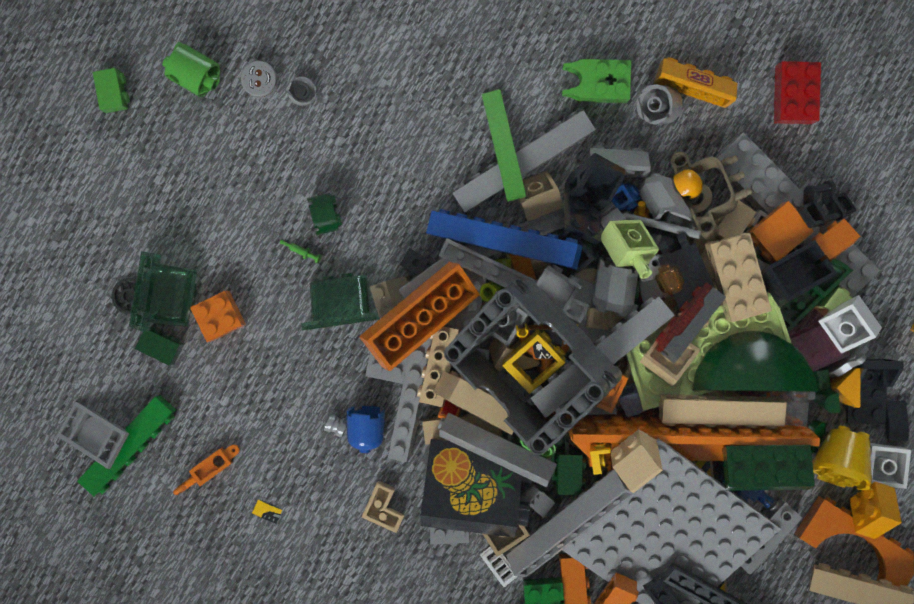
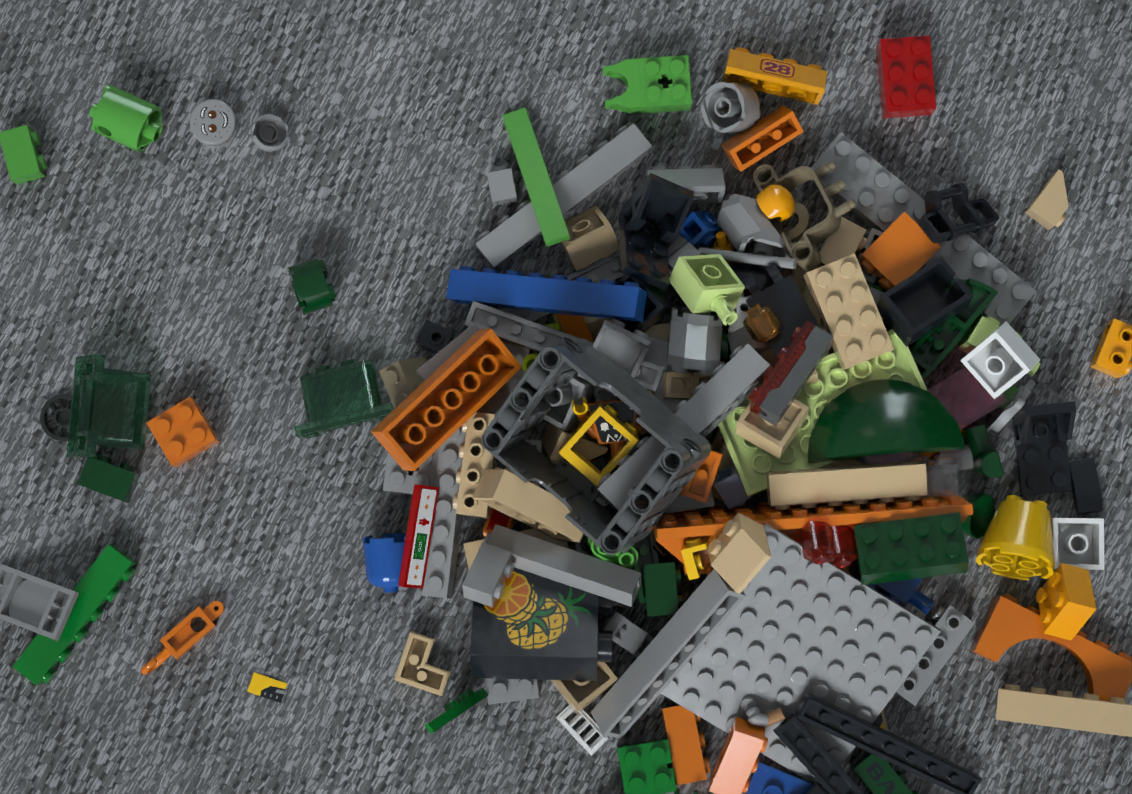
camera: 10 degrees left, 5 degrees down
(302, 251) = (287, 338): bright green piece -> none
(336, 425) = (350, 561): light grey wheel -> none
(389, 414) = (418, 536): none -> tile
(404, 549) = (455, 708): none -> green wing
(439, 452) = (488, 574): none -> light grey brick
(476, 149) = (501, 185): none -> light grey brick
(638, 577) = (765, 720): none -> arm
(681, 131) = (762, 138): none -> orange brick
(704, 458) = (828, 544): none -> clear red brick
(836, 239) = (971, 255): orange brick -> none
(848, 387) = (1011, 445): light orange slope -> none
(897, 201) = (1050, 203): none -> tan slope

